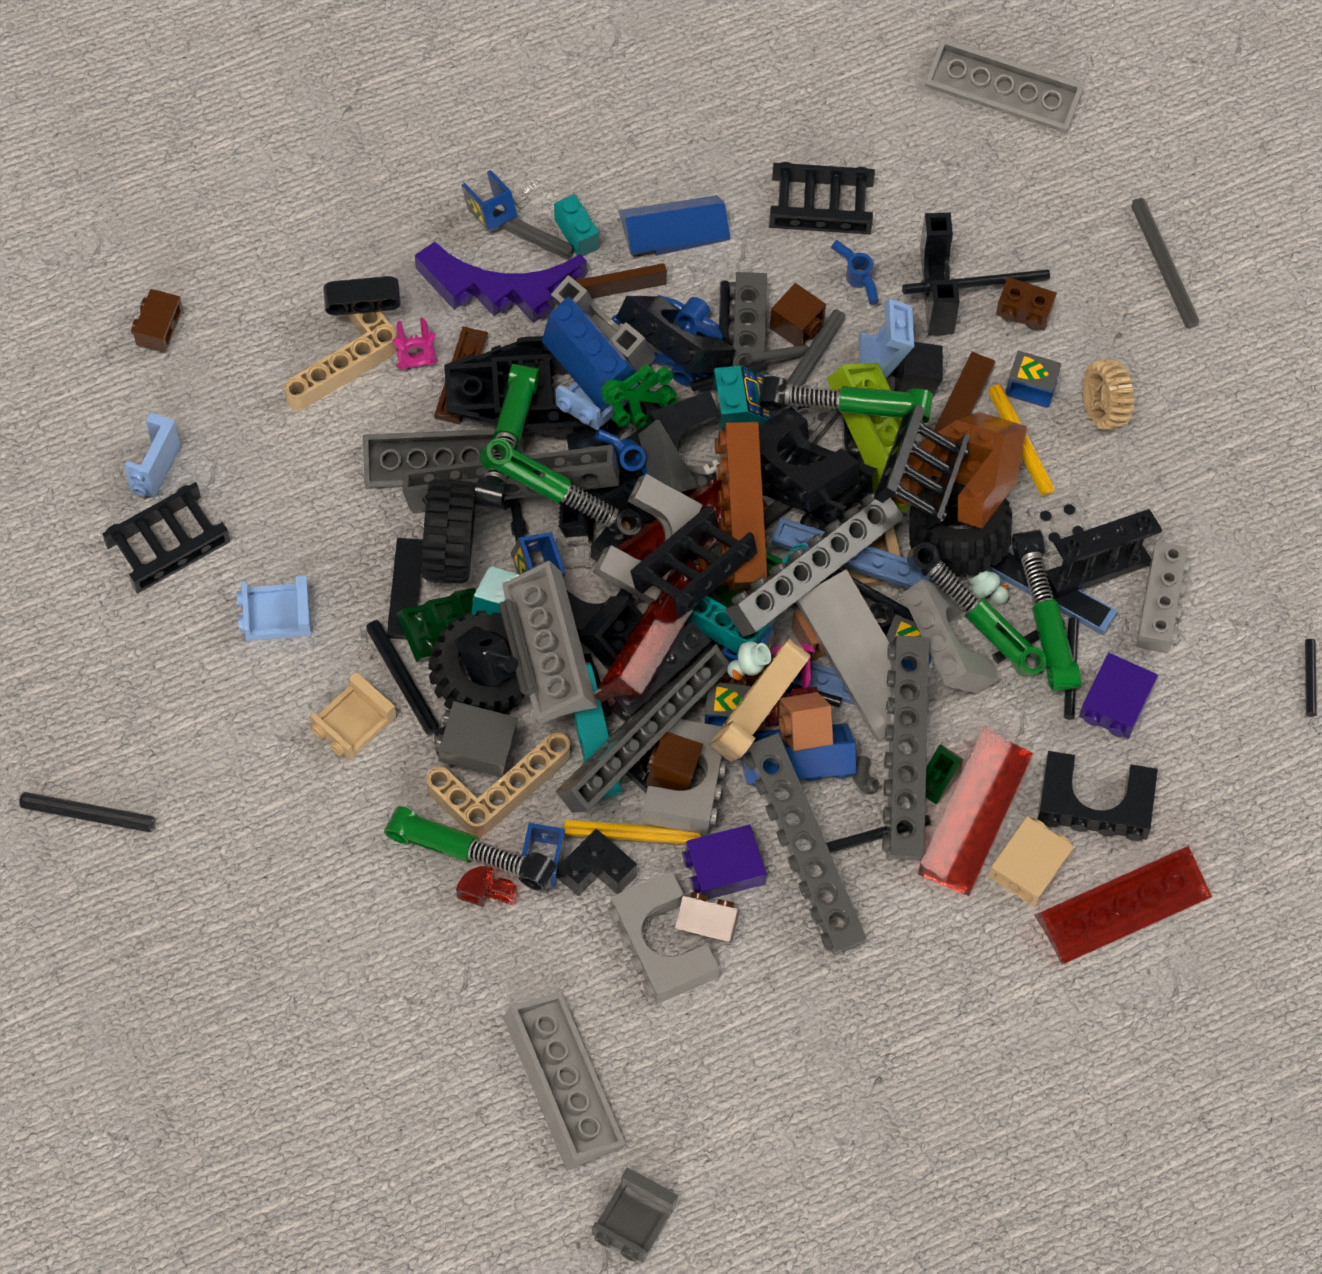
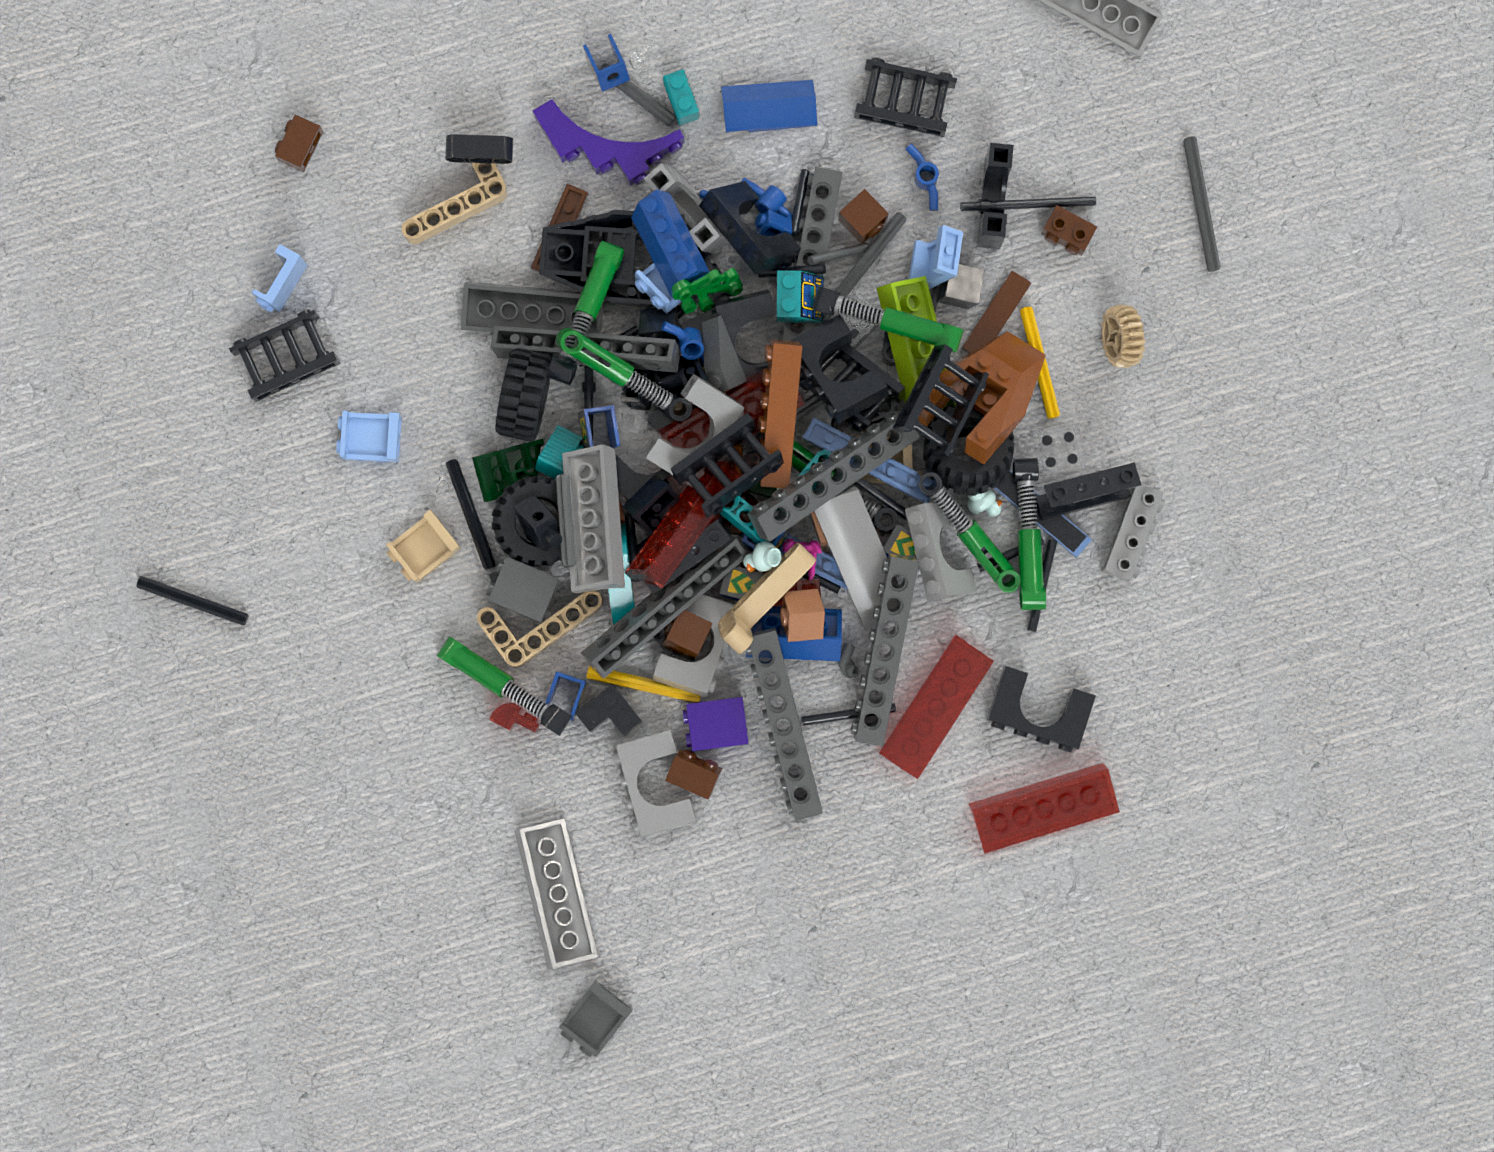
camera: 10 degrees right, 20 degrees up
(404, 582) = (483, 428): black tile -> none
(425, 357) = (511, 201): dark pink piece -> none
(625, 281) = (709, 159): reddish brown tile -> none
(705, 465) = (757, 348): white tile -> none
(941, 773) = (911, 671): dark green slope -> none
(1031, 860) = (975, 759): tan panel -> none
(1033, 379) = (1060, 307): piece -> none
(1118, 696) = (1076, 620): dark purple brick -> none
(1310, 677) = (1246, 623): black bar -> none

